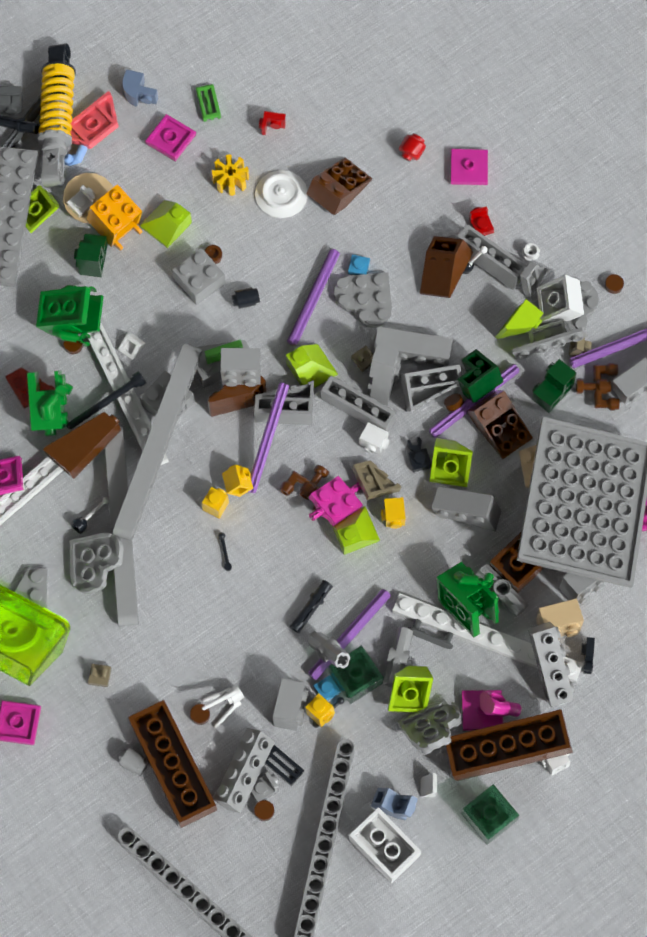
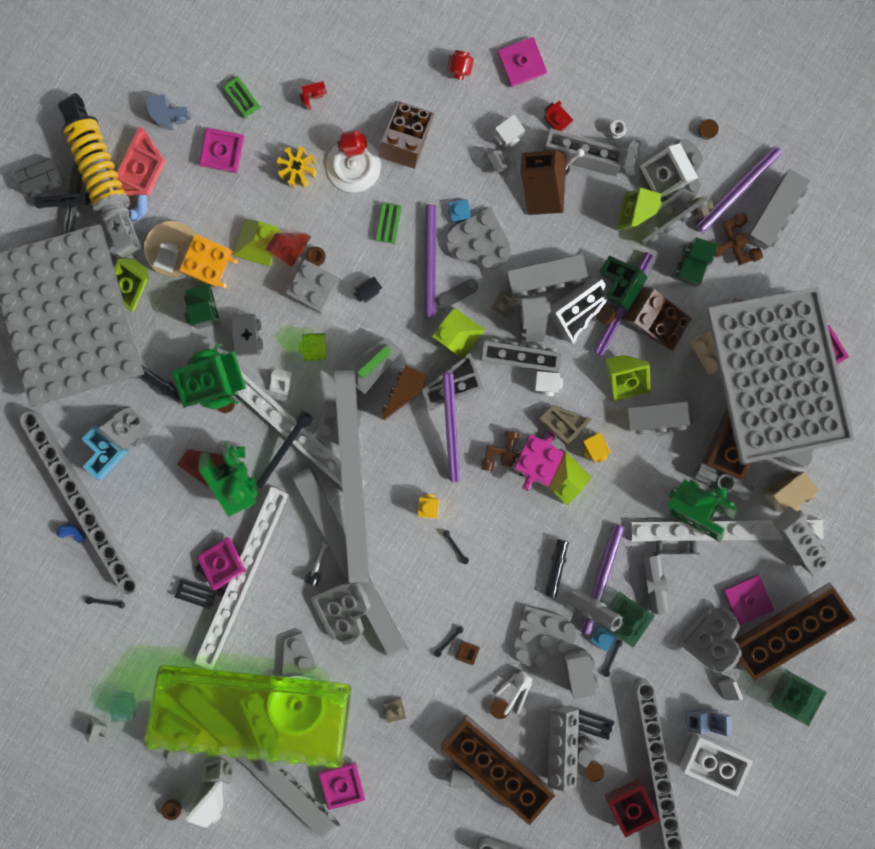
camera: 25 degrees left, 20 degrees up
(27, 310) = (165, 387): none -> black pin
(83, 444) = (282, 506): reddish brown slope -> none
(119, 293) = (240, 326): none -> dark grey brick
(164, 640) = (438, 652): none -> black hinge
(175, 325) = (313, 346): none -> clear neon green brick
(191, 234) = (288, 246): none -> clear red wing
(192, 650) = (467, 652): none -> reddish brown tile
(237, 480) = (439, 477): yellow brick -> none
(241, 366) = (400, 378): light grey brick -> none
(269, 662) = (541, 635): none -> light grey plate
(285, 853) = (631, 808): none -> dark red brick
(287, 172) = (352, 143): none -> red head
(297, 240) = (391, 207): none -> bright green tile
(320, 710) = (608, 666): yellow brick -> none
(325, 334) = (456, 294): none -> dark grey piece
(410, 689) = (682, 610): lime slope -> none
(411, 237) = (498, 160): none -> light grey tile
(418, 457) = (595, 382): black plate -> none
(431, 217) = (508, 132): none -> white brick
(496, 705) = (766, 597): dark pink piece -> none
(587, 650) = (825, 509): black plate -> none

